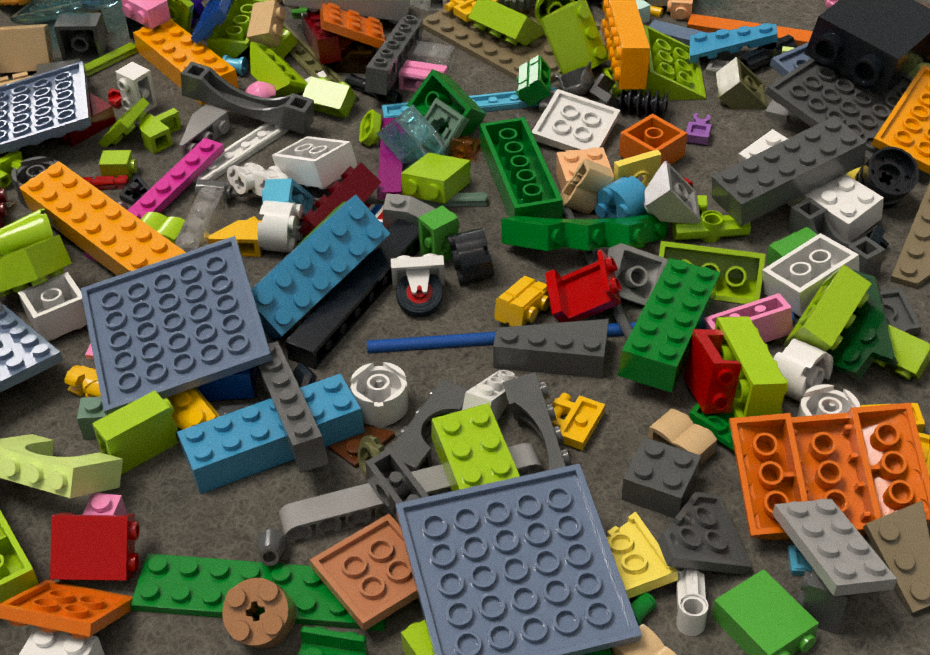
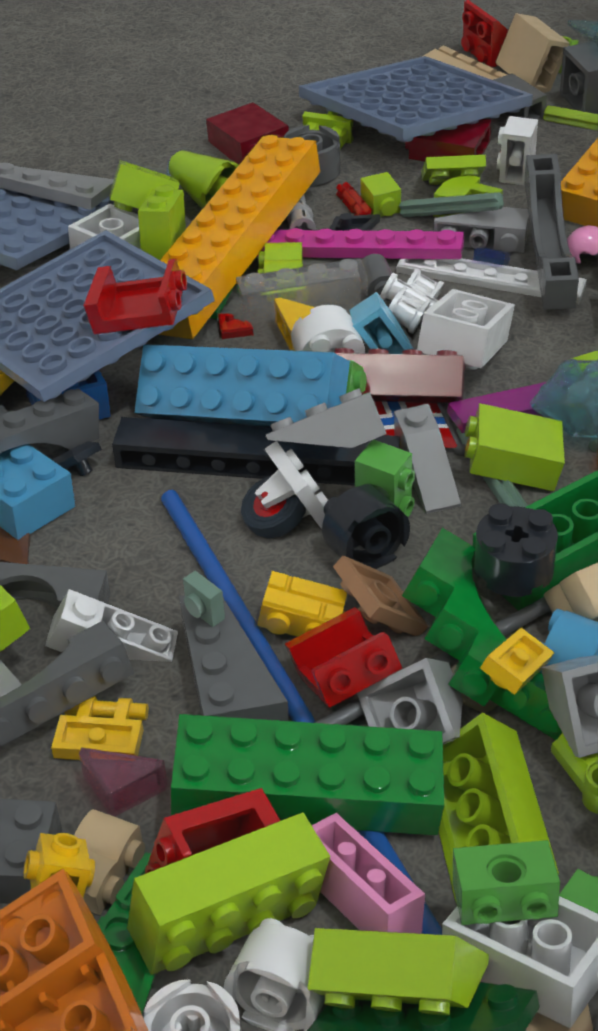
camera: 70 degrees right, 0 degrees up
(89, 259) = (161, 220): none -> lime brick
(170, 133) = (452, 204): none -> sand green axle
(218, 273) = (134, 303): none -> red panel
(231, 137) = (491, 256): none -> clear blue tile
(380, 393) = (68, 525): white brick -> none
(403, 222) = (343, 425): none -> light grey slope
(520, 323) = (203, 599): none -> sand green plate
(524, 267) = (379, 597): none -> medium nougat plate
(552, 187) = (515, 549): none -> black brick
(622, 417) = (122, 779): none -> clear pink slope
(639, 210) = (516, 661): none -> yellow plate
(711, 434) = (59, 853): none -> yellow brick
(790, 258) = (505, 882): none -> bright green brick

